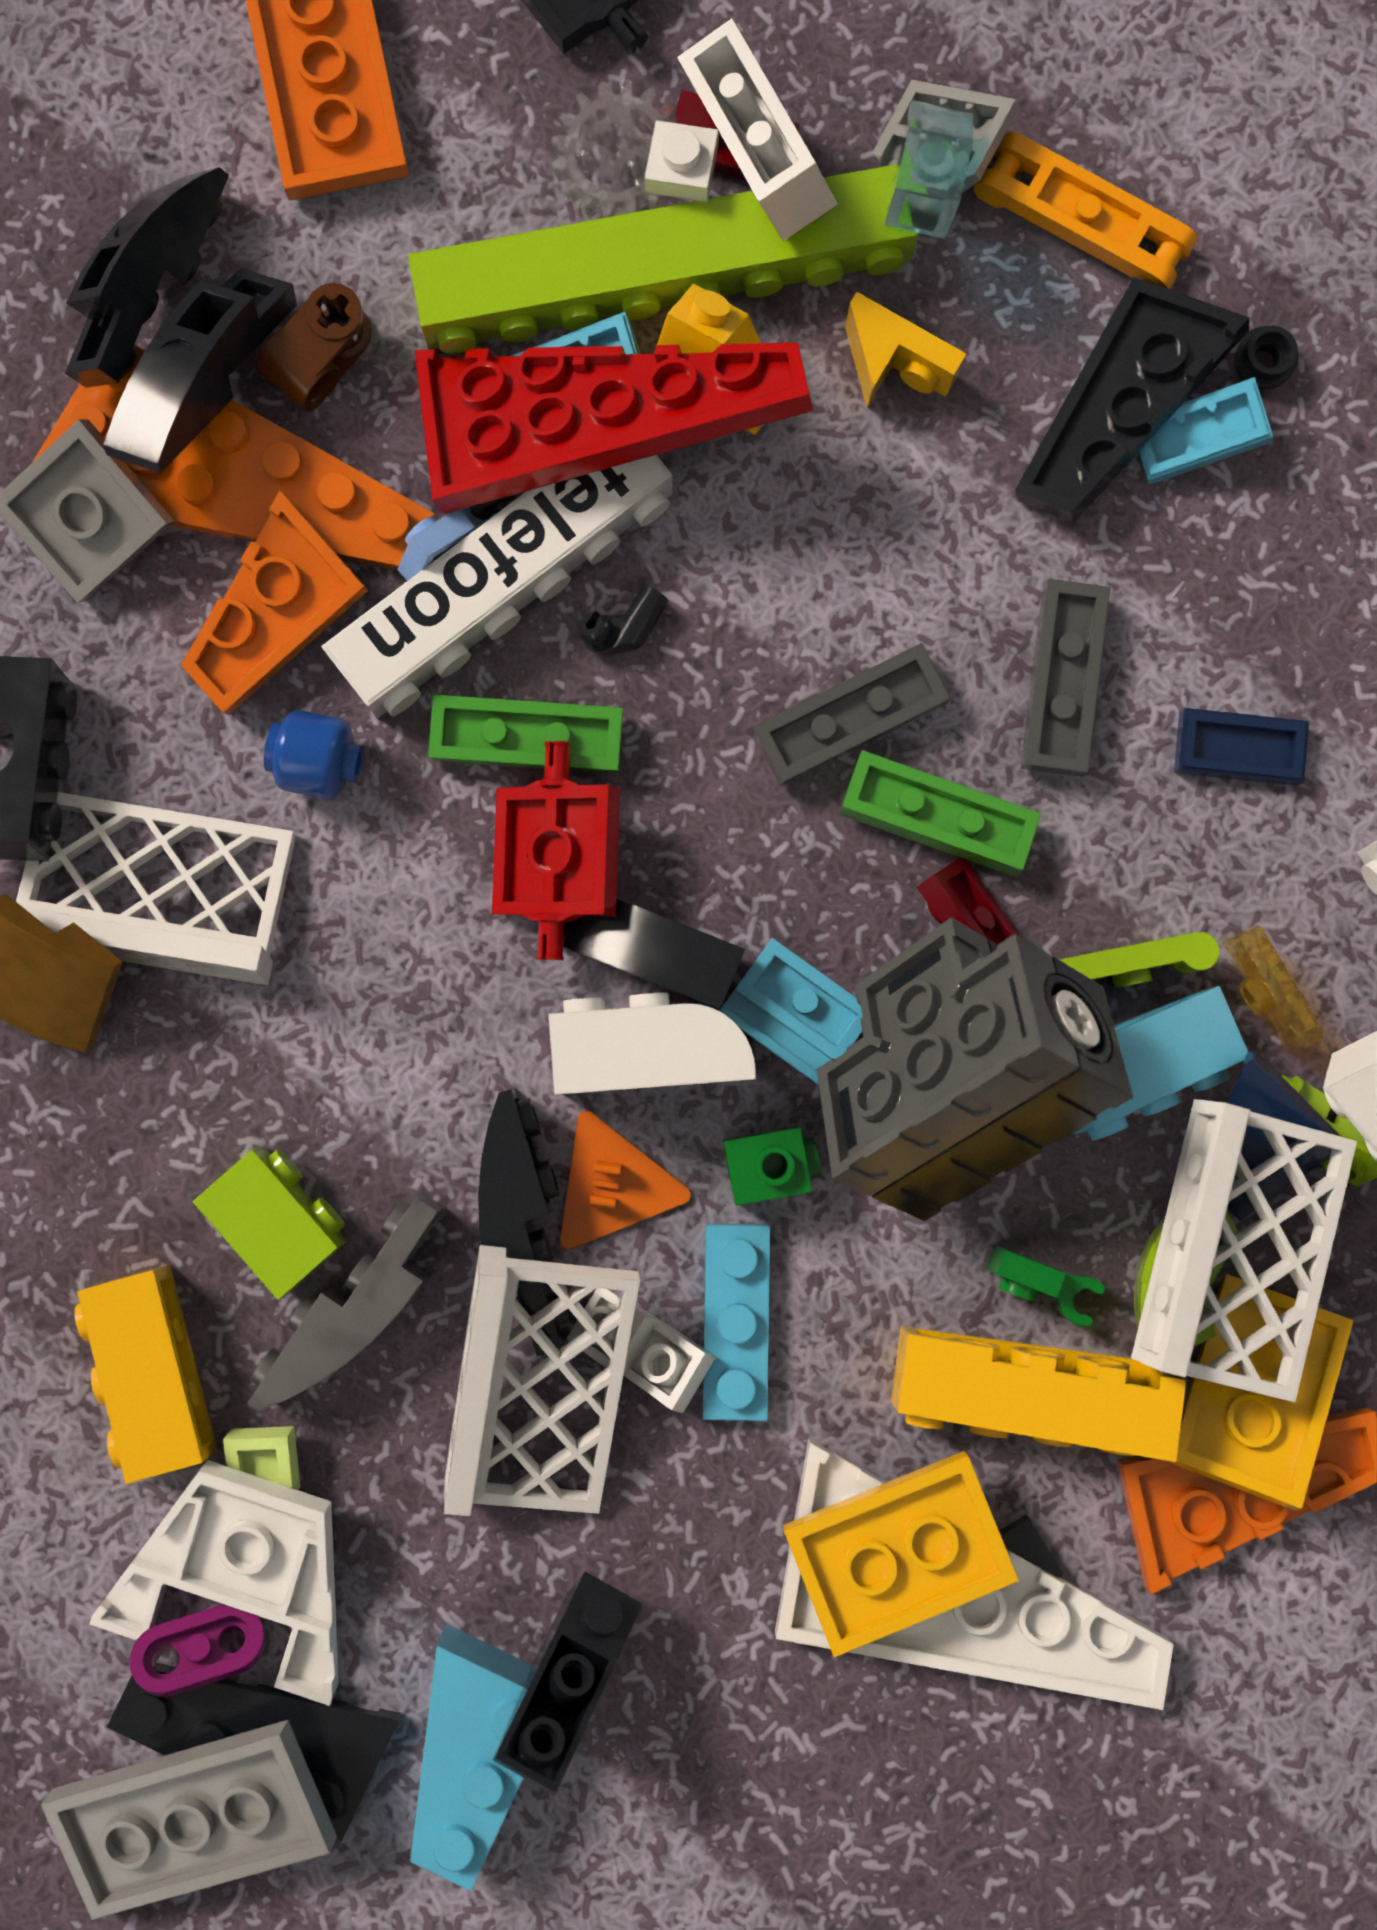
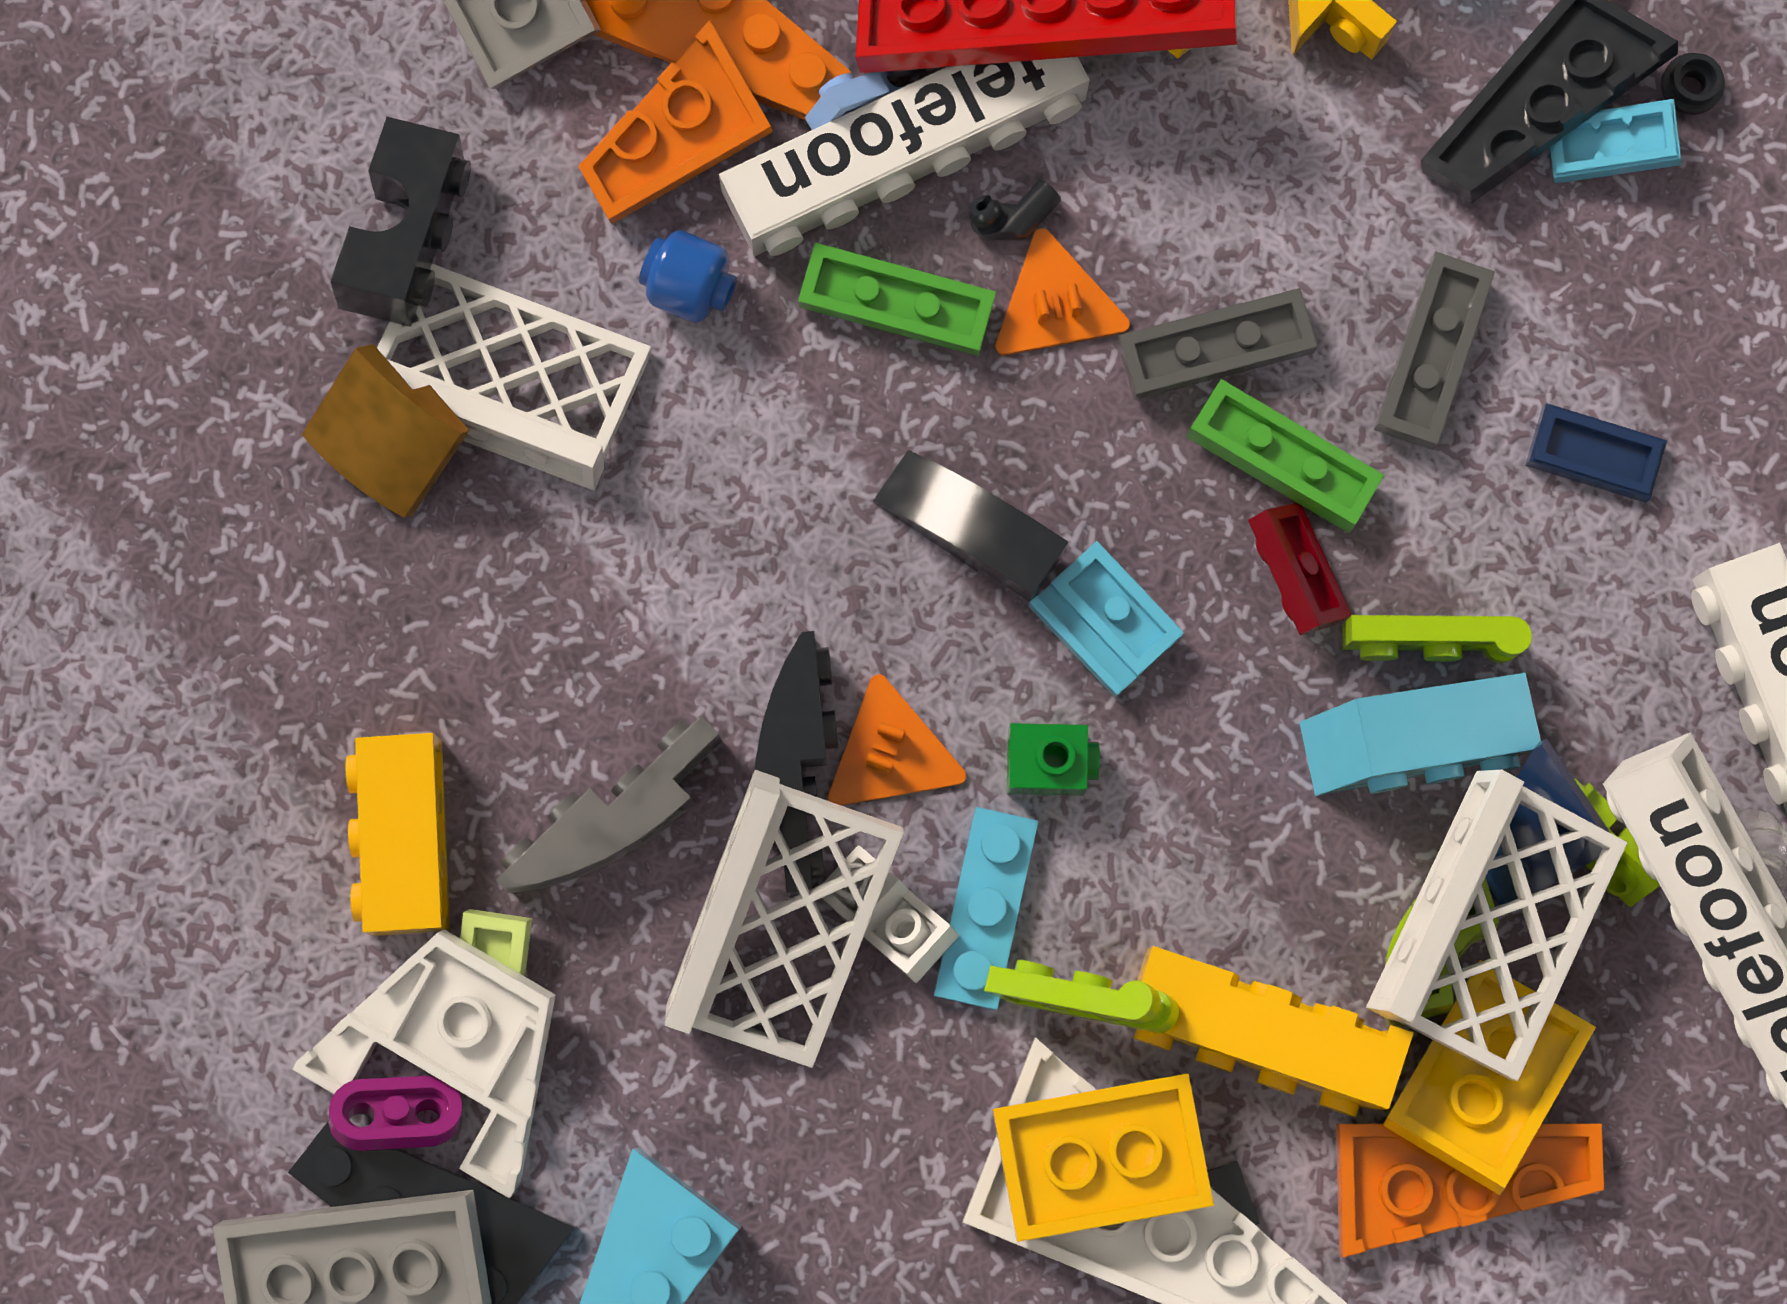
camera: 15 degrees right, 5 degrees down
(272, 1220) = (554, 714): lime brick -> none
(556, 851) = (903, 414): red plate -> none
(566, 1682) = (756, 1200): black slope -> none
(644, 1045) = (955, 617): white brick -> none
(683, 704) = (1055, 302): none -> orange piece
(850, 1401) = (1085, 996): none -> lime plate
(966, 1068) = (1257, 690): dark grey piece -> none
(1027, 1277) = (1283, 921): green plate -> none
(1271, 990) = (1577, 690): clear yellow plate -> none

